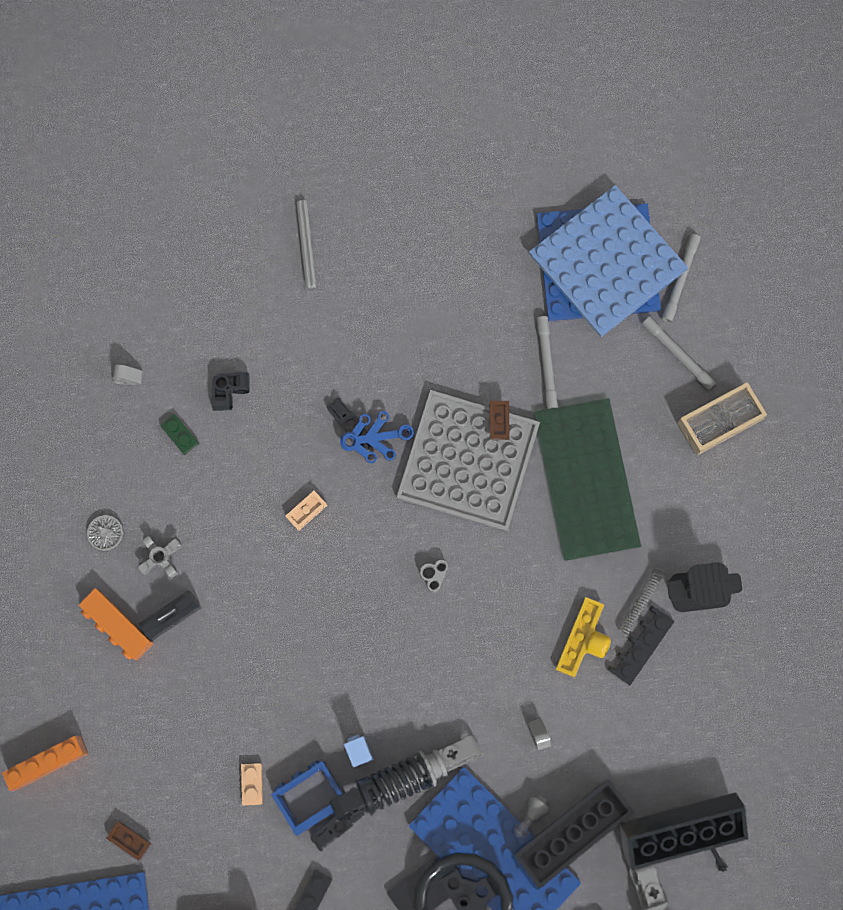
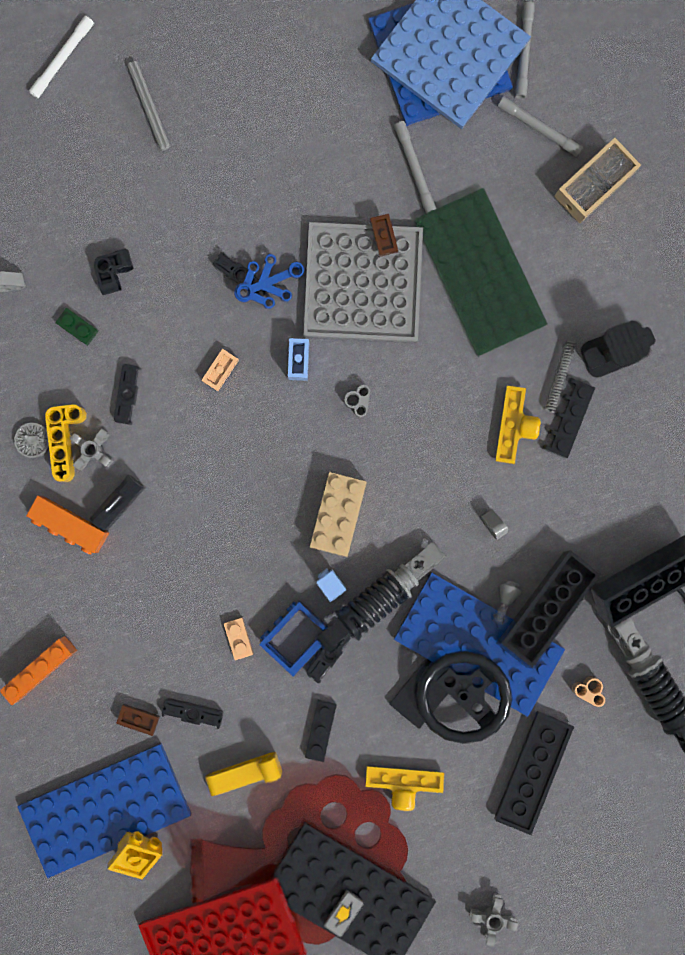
camera: 25 degrees left, 10 degrees up
(135, 543) = (65, 442): none -> yellow beam
(197, 854) = (205, 714): none -> black piece
(213, 499) = (127, 381): none -> black piece
(260, 161) = (43, 81): none -> white piece
(384, 682) = (338, 514): none -> tan brick
(385, 519) = (298, 359): none -> light blue brick

